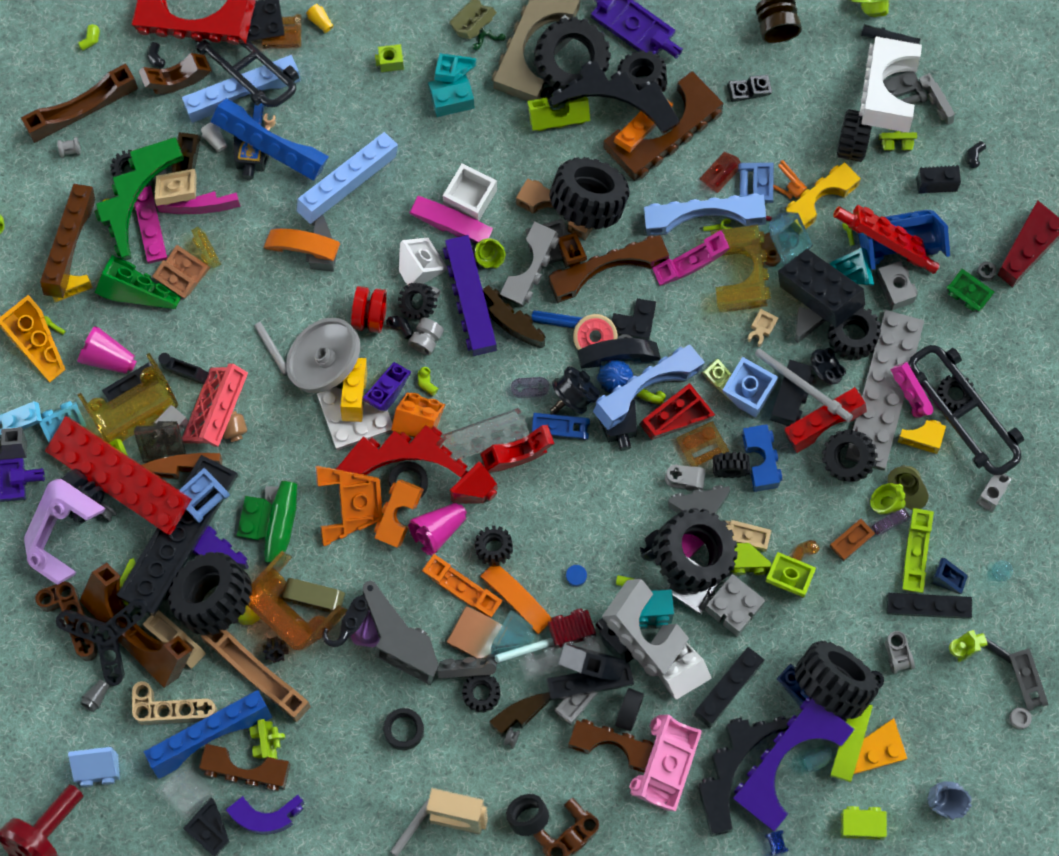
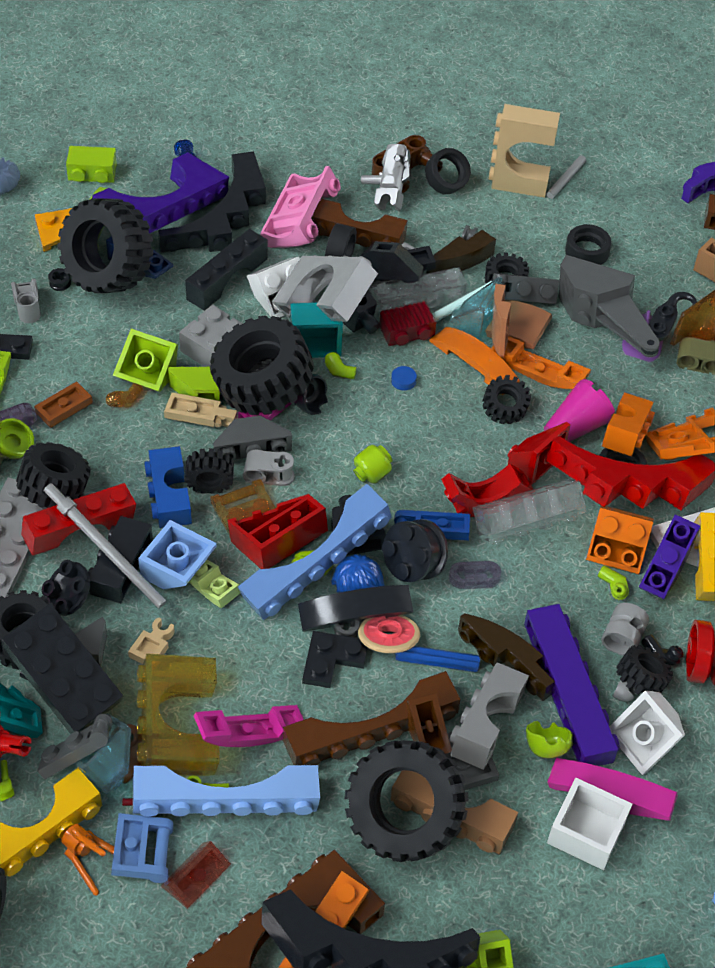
camera: 175 degrees right, 20 degrees down
(495, 604) = (500, 320): none -> nougat slope
(580, 799) = (395, 172): none -> light grey piece
(604, 481) = (372, 464): none -> lime head
(806, 237) = (75, 747): none -> dark grey plate

